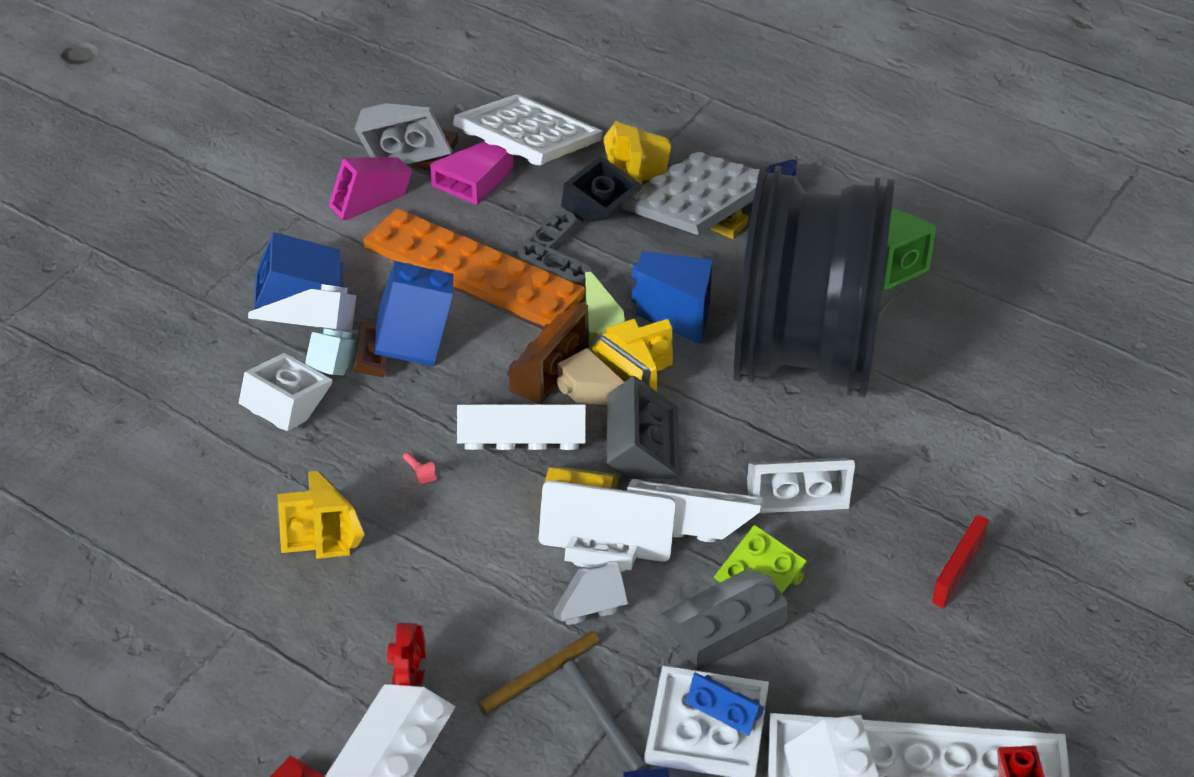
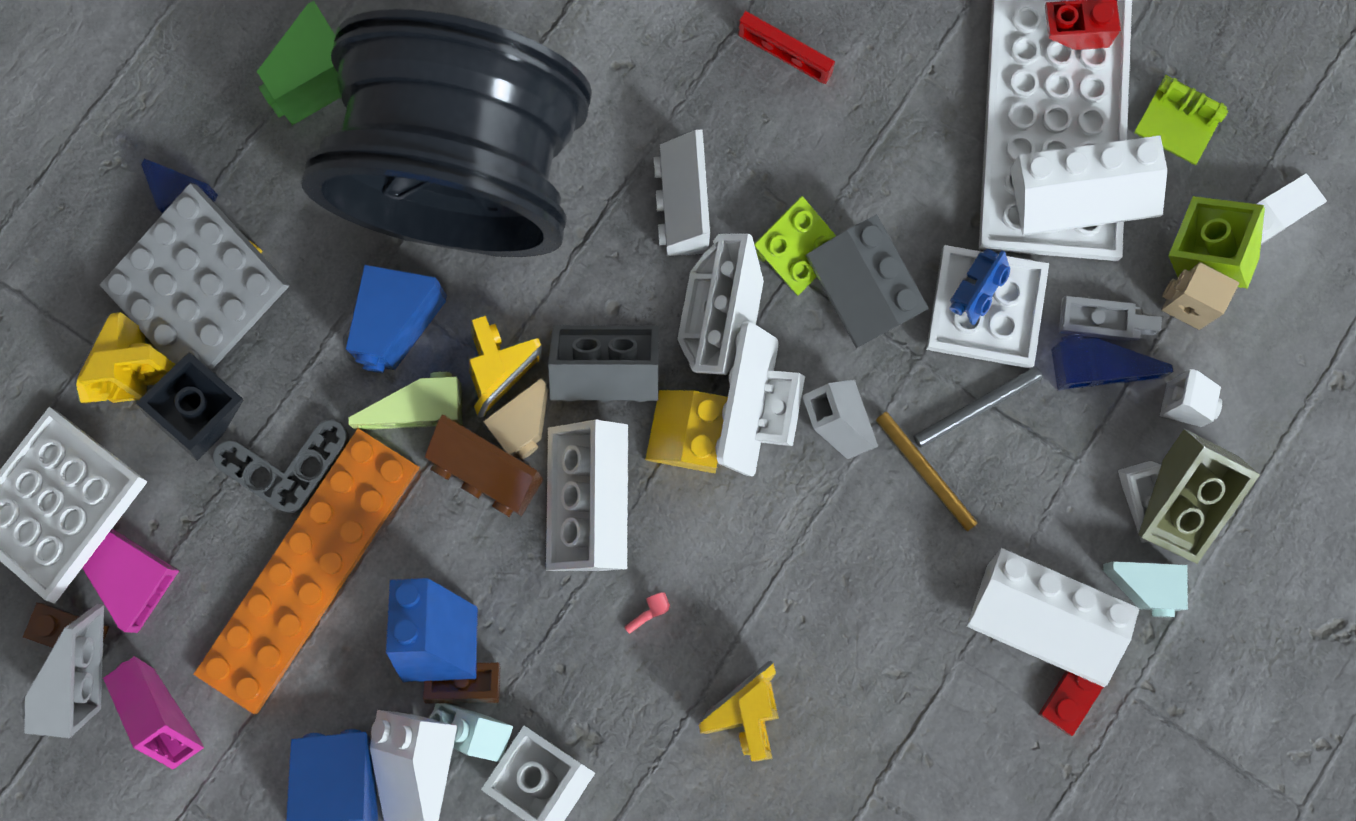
camera: 90 degrees left, 35 degrees up
(407, 655) = (950, 602): red plate -> none

